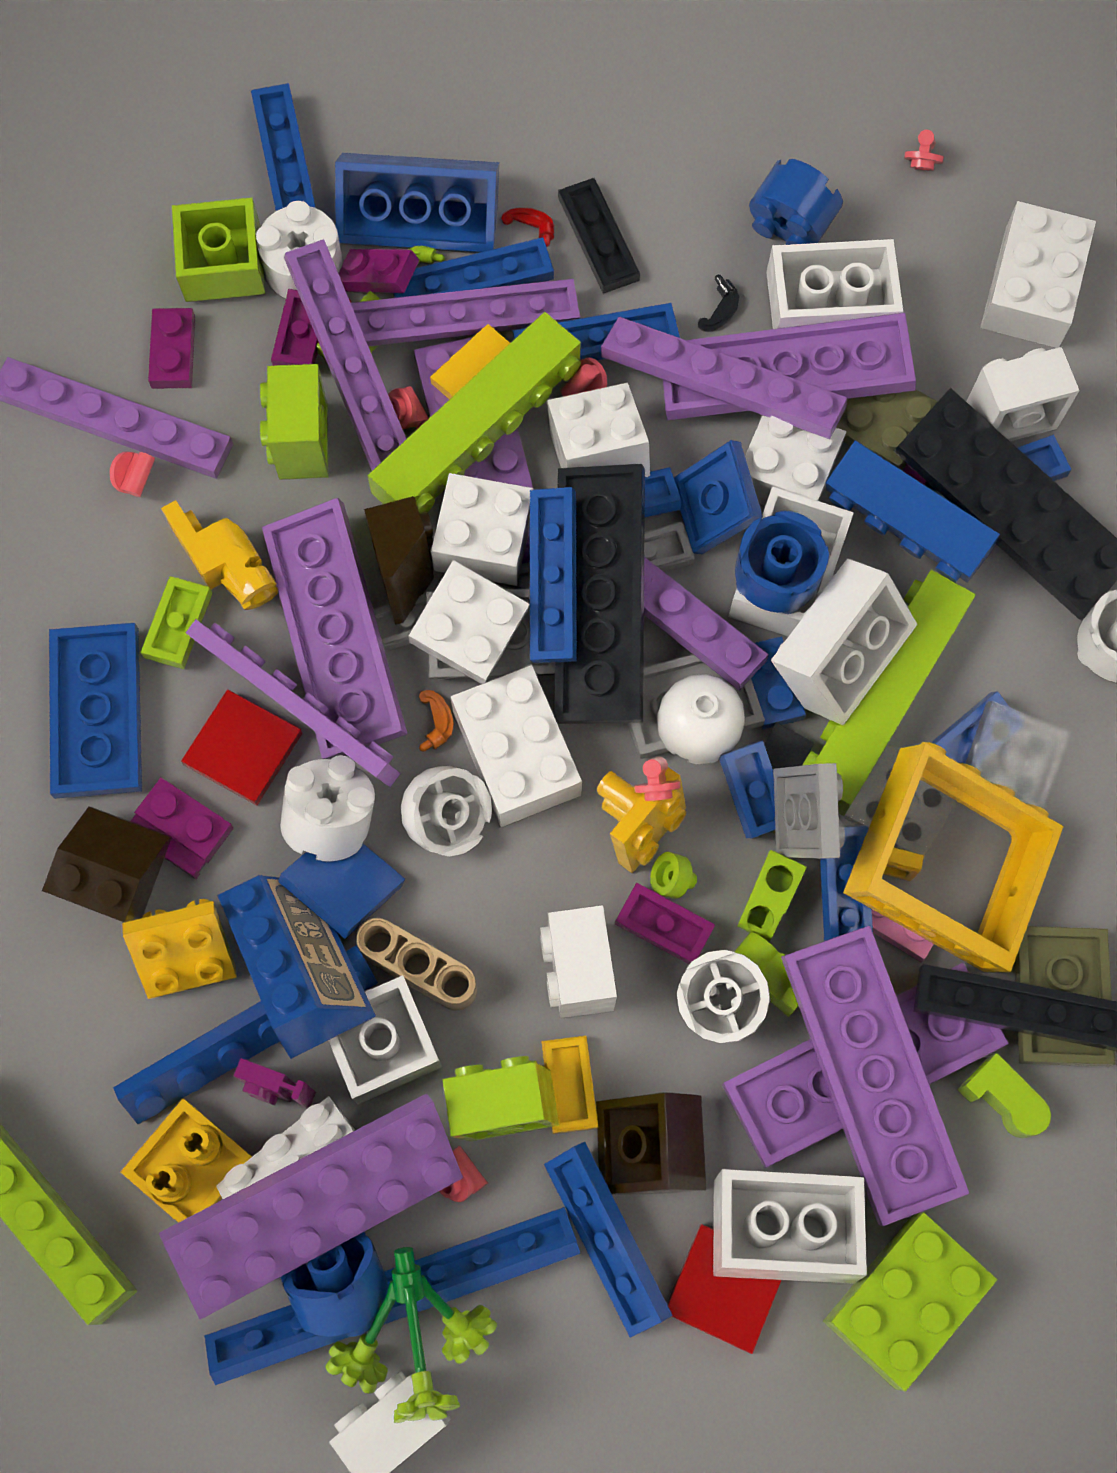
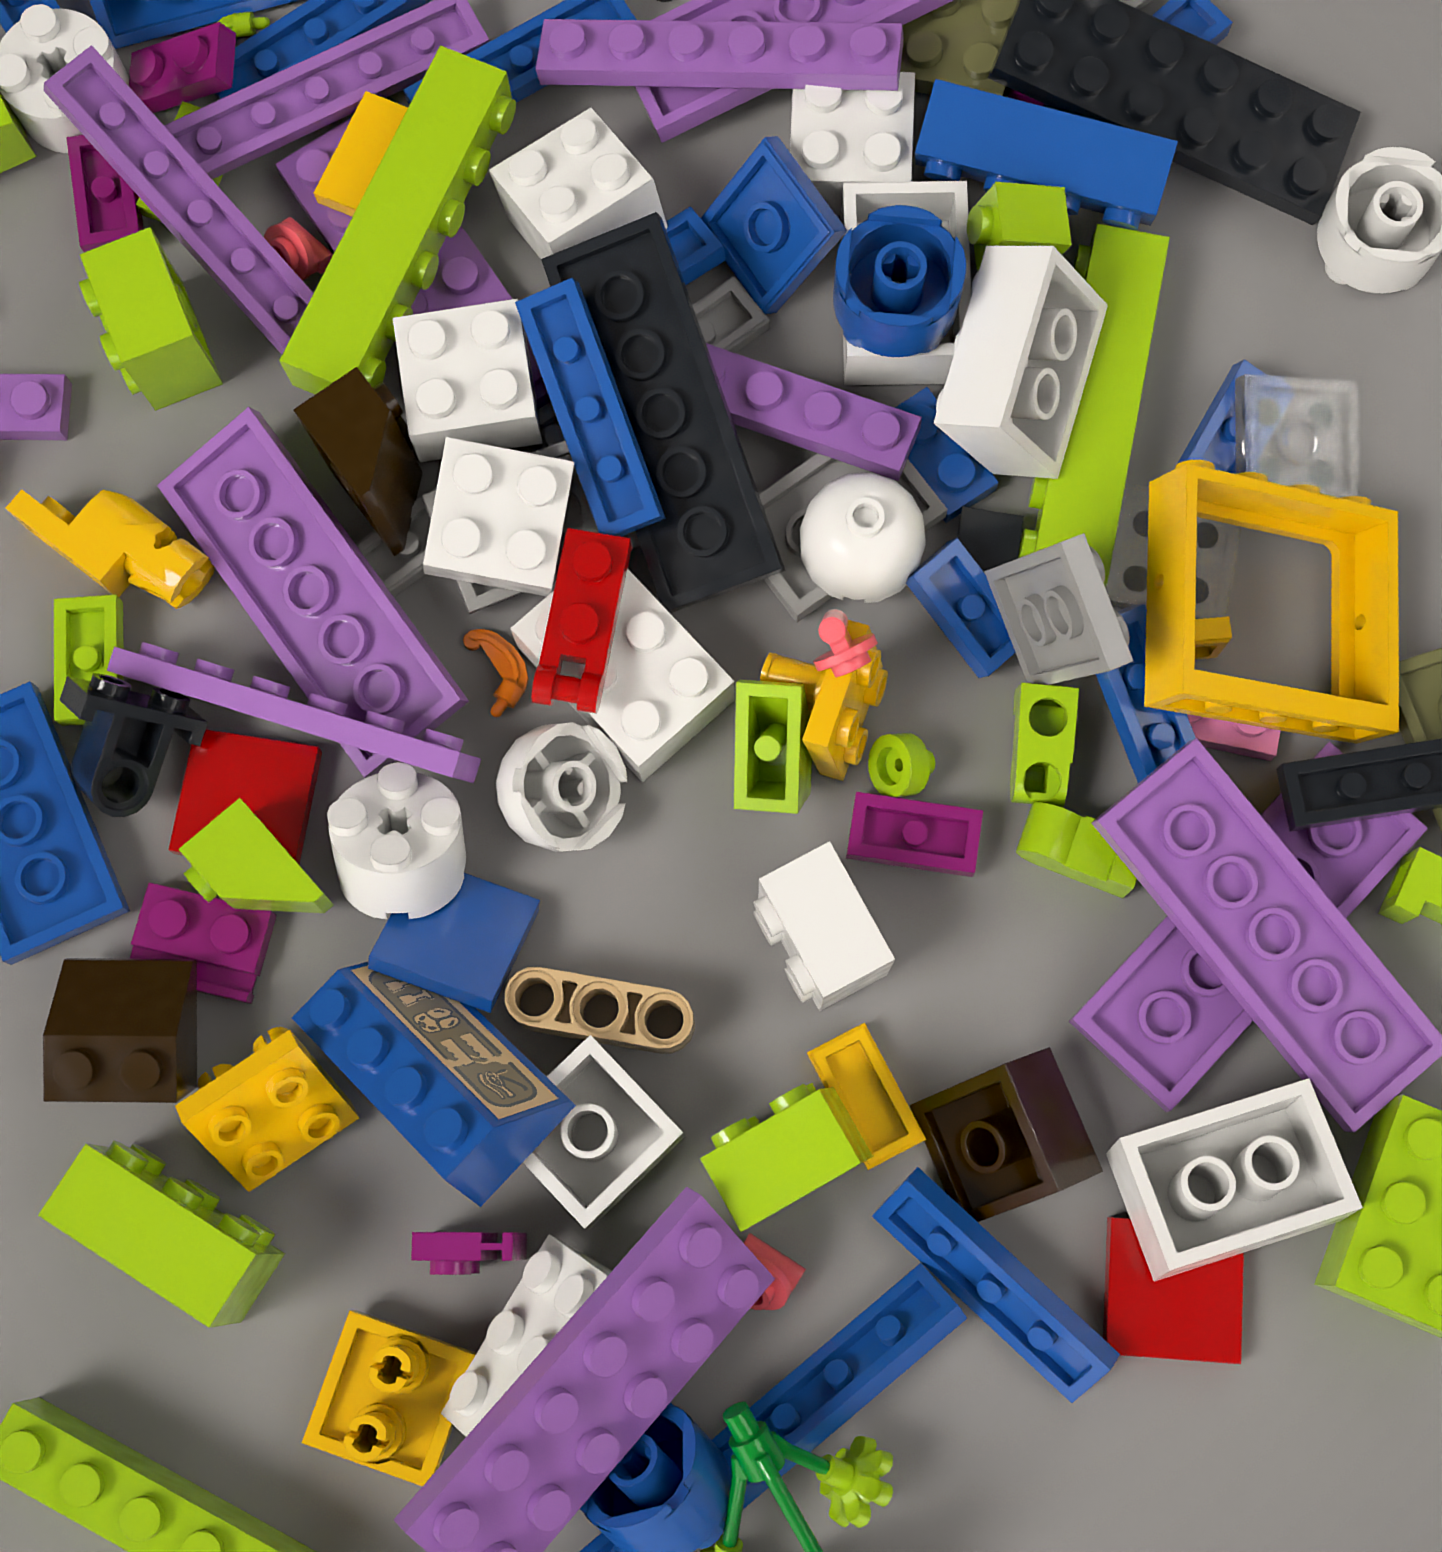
camera: 15 degrees left, 5 degrees up
(85, 1002) = (164, 1232): none -> lime brick
(181, 675) = (128, 733): none -> black pin
(209, 1056) = (363, 1241): blue plate -> none
(227, 789) = (249, 866): none -> lime slope
(498, 706) = (582, 618): none -> red plate
(586, 839) = (770, 756): none -> lime slope
(587, 378) = (532, 120): coral plate -> none
(723, 996) = (1034, 904): white cylinder -> none
(878, 548) = (1019, 217): none -> lime slope

